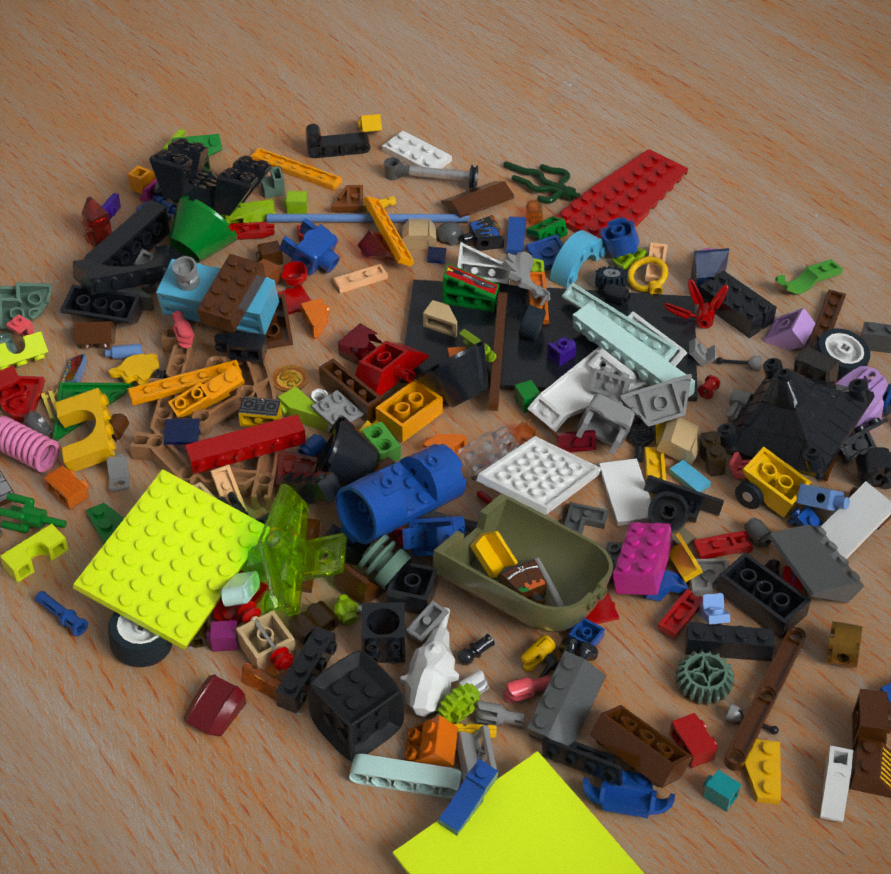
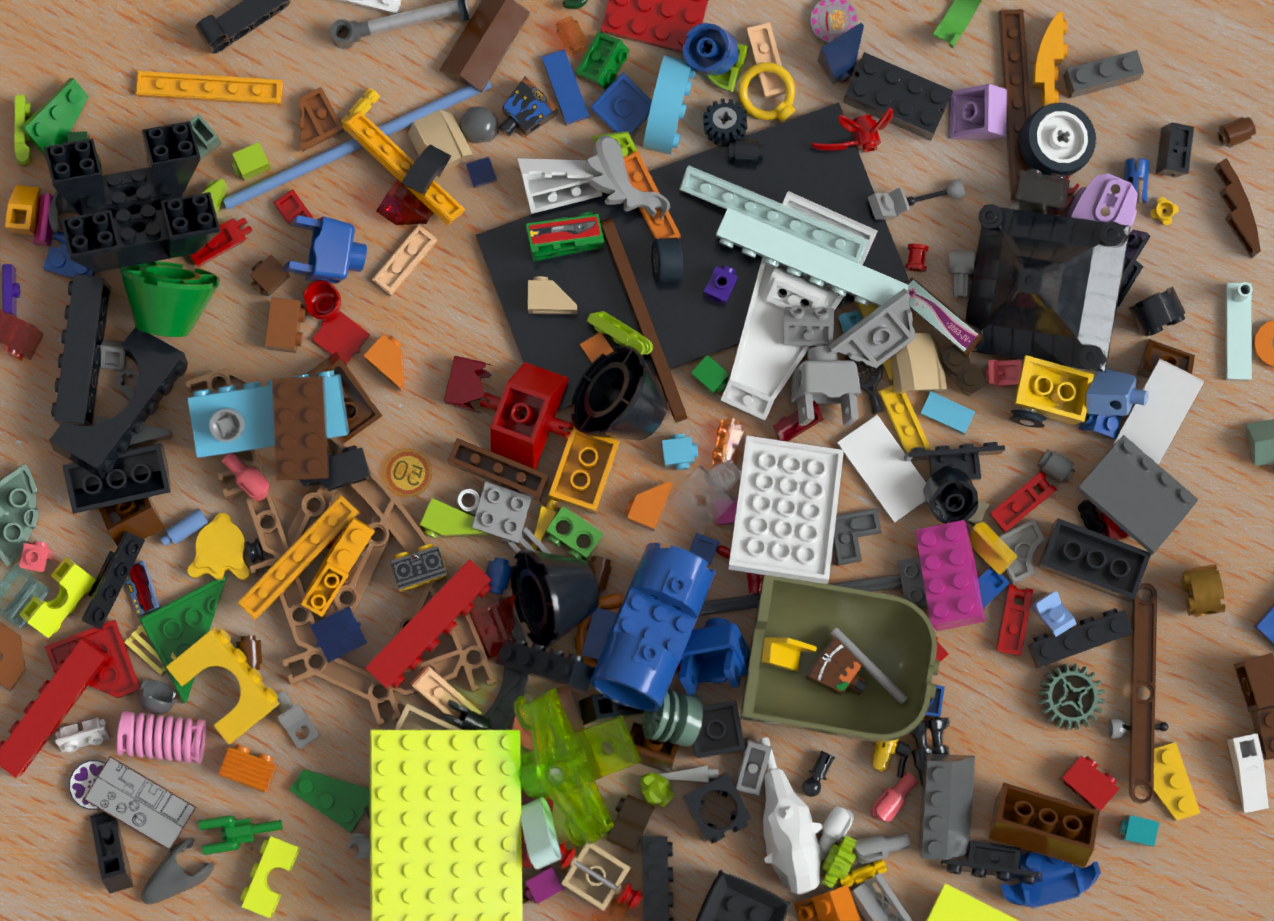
camera: 30 degrees left, 35 degrees up
(61, 350) = (111, 579): none -> black bracket
(397, 229) = (425, 169): none -> black slope
(471, 489) = (704, 547): none -> blue tile
(479, 425) = (679, 452): none -> medium azure brick
(711, 416) = (942, 317): none -> slope
(856, 315) = (1050, 53): none -> light orange slope

